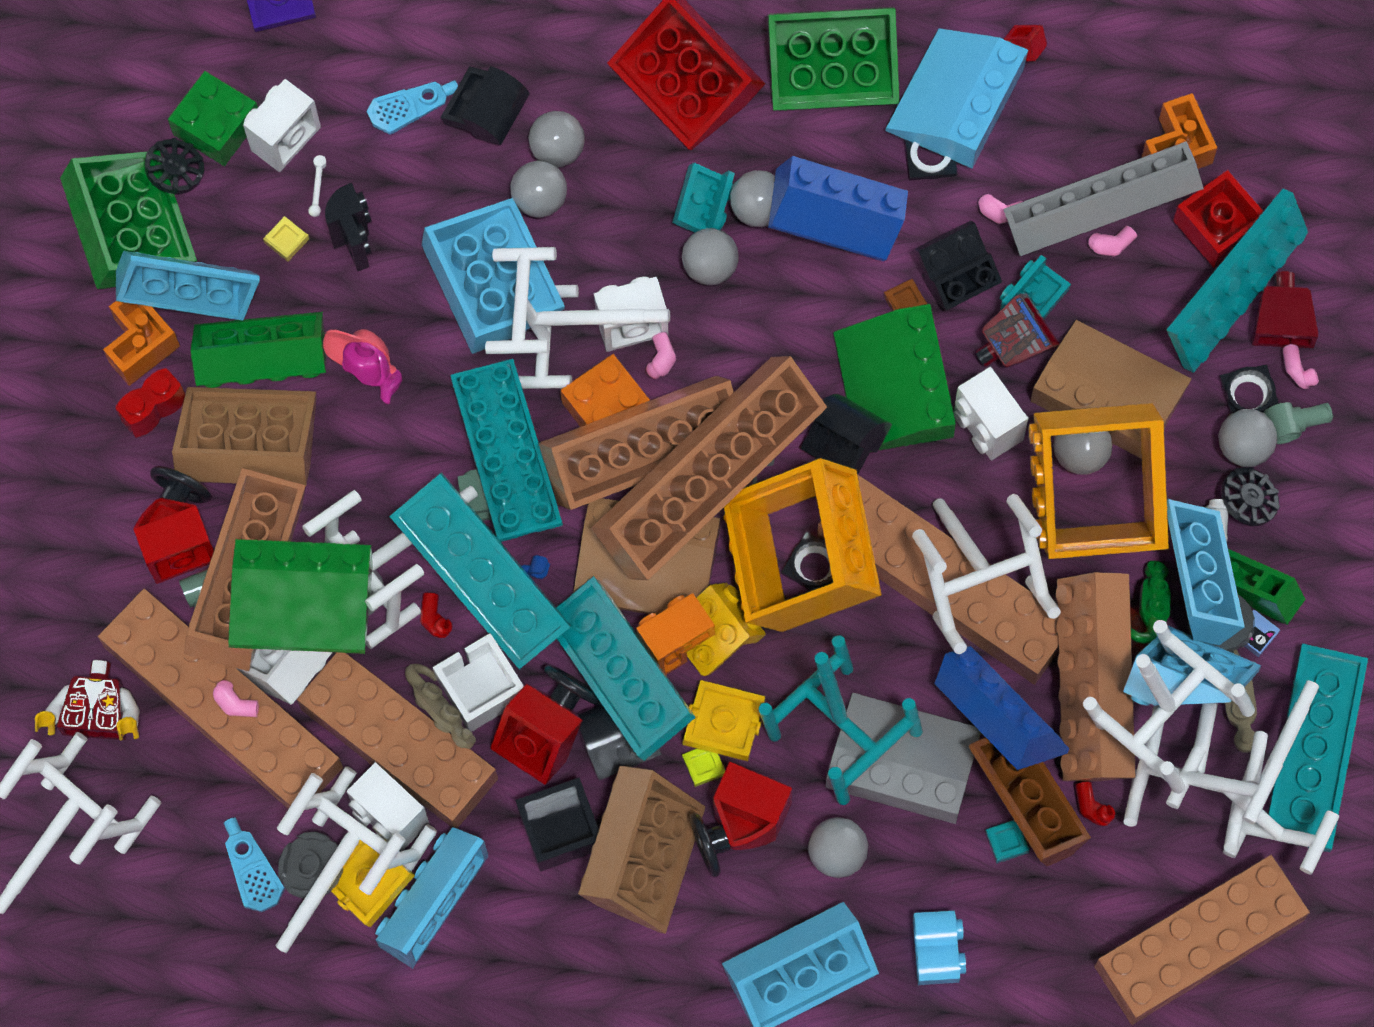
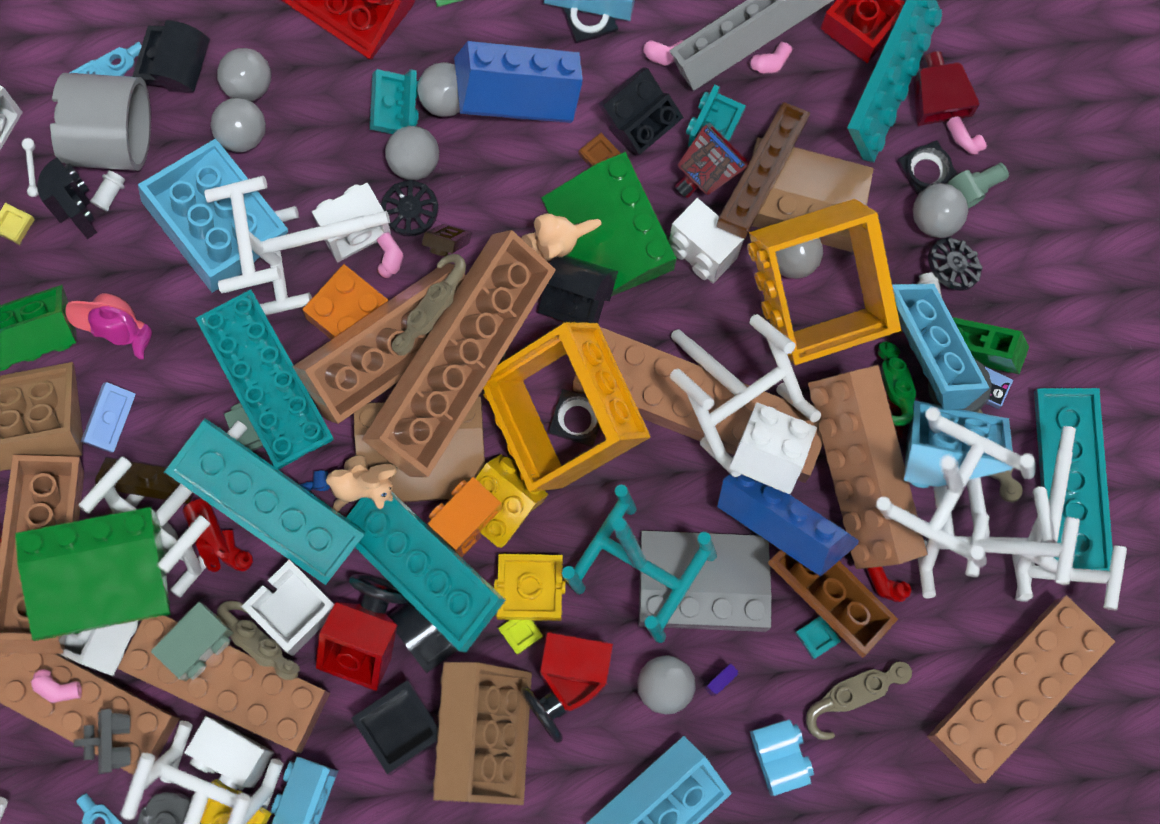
camera: 20 degrees left, 5 degrees up
(278, 749) = (108, 757): none -> dark grey hips
(340, 454) = (108, 417): none -> light blue plate
(364, 525) = (143, 480): none -> dark brown plate
(378, 689) = (193, 642): none -> sand green brick
(390, 226) = (107, 190): none -> white pin
(403, 156) = (101, 121): none -> light grey brick
(416, 595) = (212, 539): none -> red piece
(577, 573) = (359, 482): none -> light nougat animal
(695, 312) = (410, 207): none -> black wheel
(700, 408) = (437, 299): none -> dark tan piece
(723, 352) = (446, 239): none -> dark brown plate
(837, 373) = (557, 235): none -> light nougat animal
(896, 858) = (722, 680): none -> dark purple tile
(1001, 632) = (773, 448): none -> white piece
(1031, 905) = (856, 693): none -> dark tan piece
(1069, 353) = (763, 170): none -> reddish brown tile

